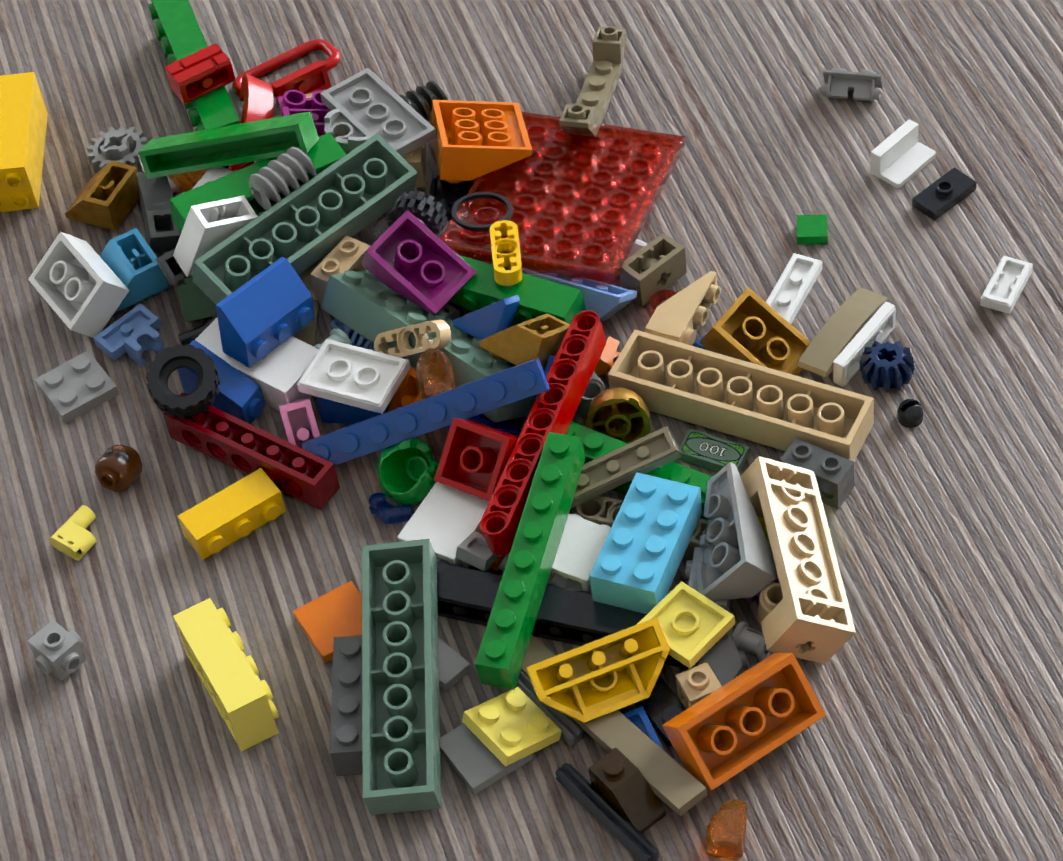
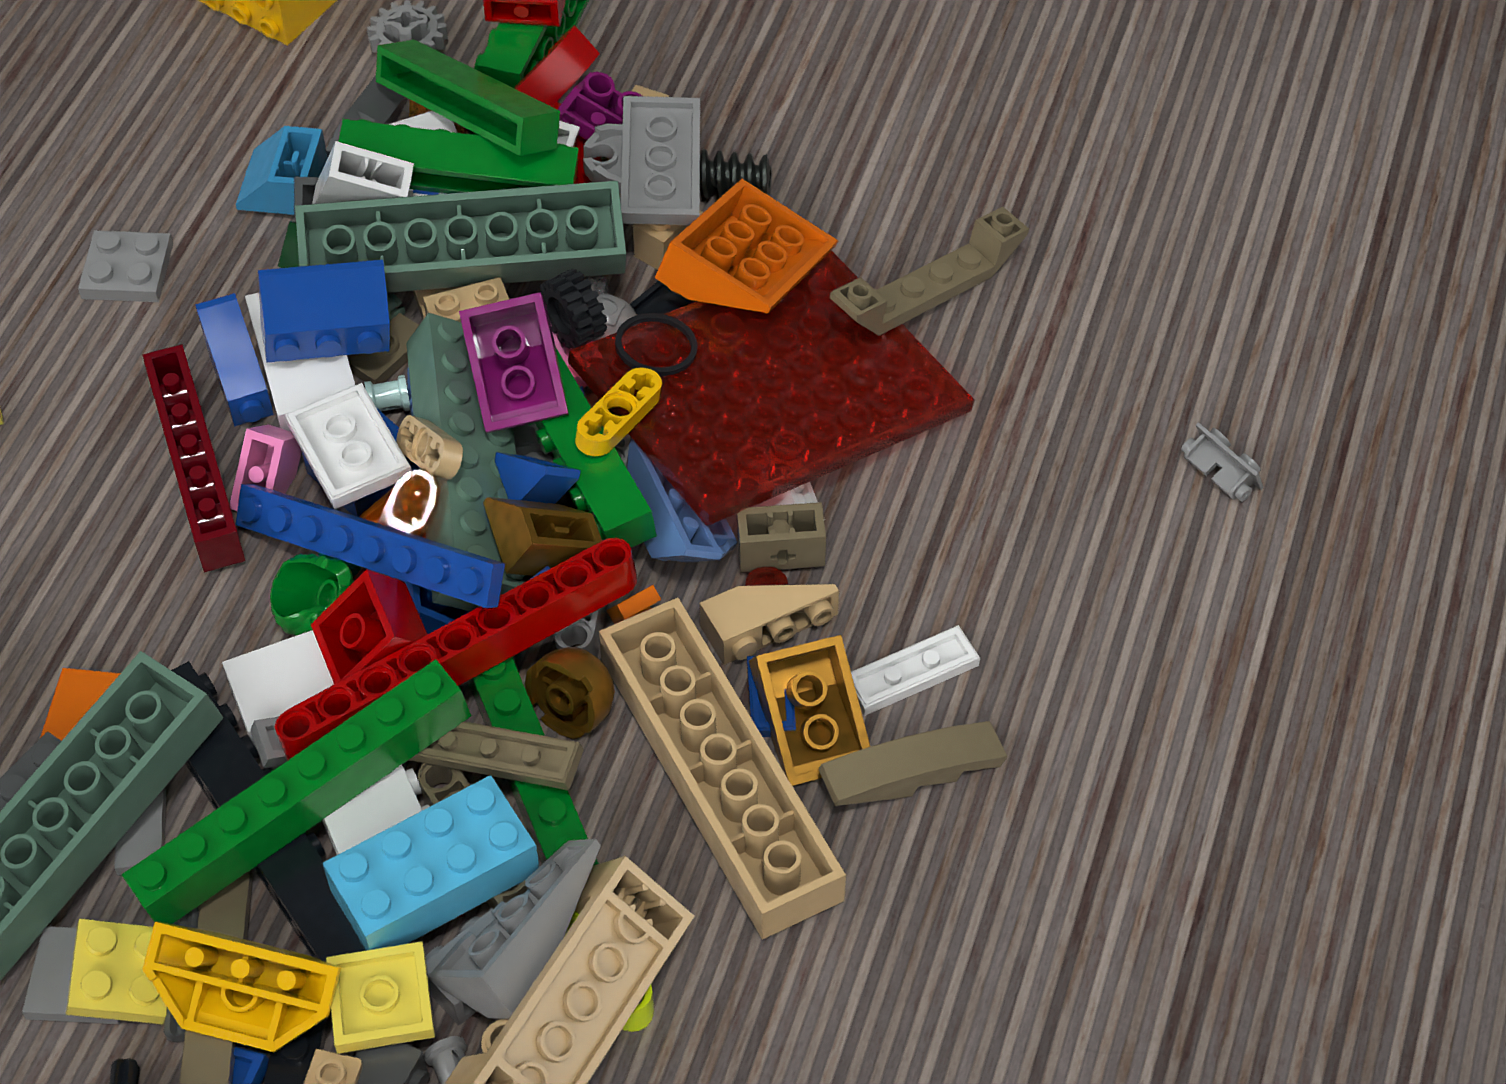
camera: 30 degrees right, 5 degrees up
(78, 285) = (215, 156): white brick -> none
(107, 197) = (339, 77): pearl gold slope -> none
(118, 468) = (66, 384): reddish brown head -> none
(131, 334) = (223, 245): medium blue plate -> none
(183, 405) = (155, 312): black tyre -> none
(232, 513) = (114, 514): yellow brick -> none
(280, 175) = (465, 168): light grey piece -> none
(307, 79) = (655, 72): red bar -> none
(388, 513) = (259, 621): clear blue arm -> none
(712, 451) = (641, 805): sand green tile -> none
(812, 229) = (1009, 610): green tile -> none
(832, 471) = (718, 920): dark grey brick -> none
(876, 329) = (922, 795): white tile -> none
(887, 365) = (921, 857): dark blue gear -> none
(900, 156) = (1194, 589): white panel -> none
(910, 413) = (894, 926): black hinge -> none
(944, 194) = (1200, 671): black plate -> none
(1006, 284) = (1157, 839): white plate -> none

